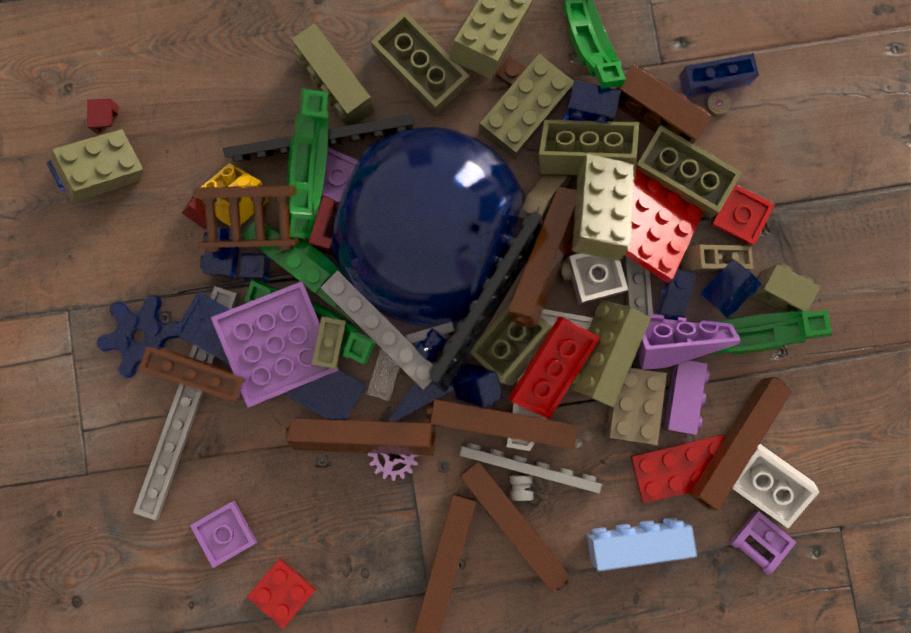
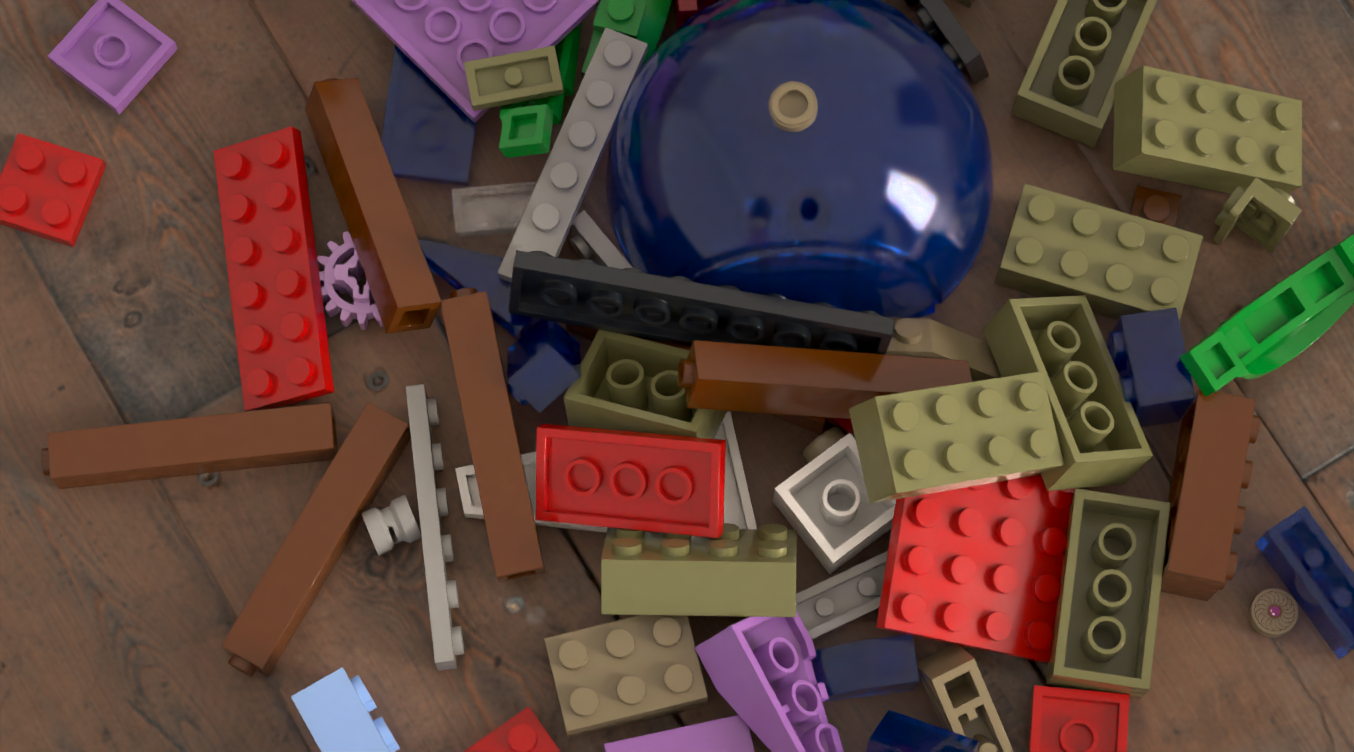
camera: 70 degrees right, 10 degrees down
(371, 496) = (273, 271): none -> red plate
(422, 212) = (793, 106): none -> dark tan tile
(431, 345) = (574, 246): clear blue wheel -> none
(537, 23) = (1258, 212): none -> olive bracket

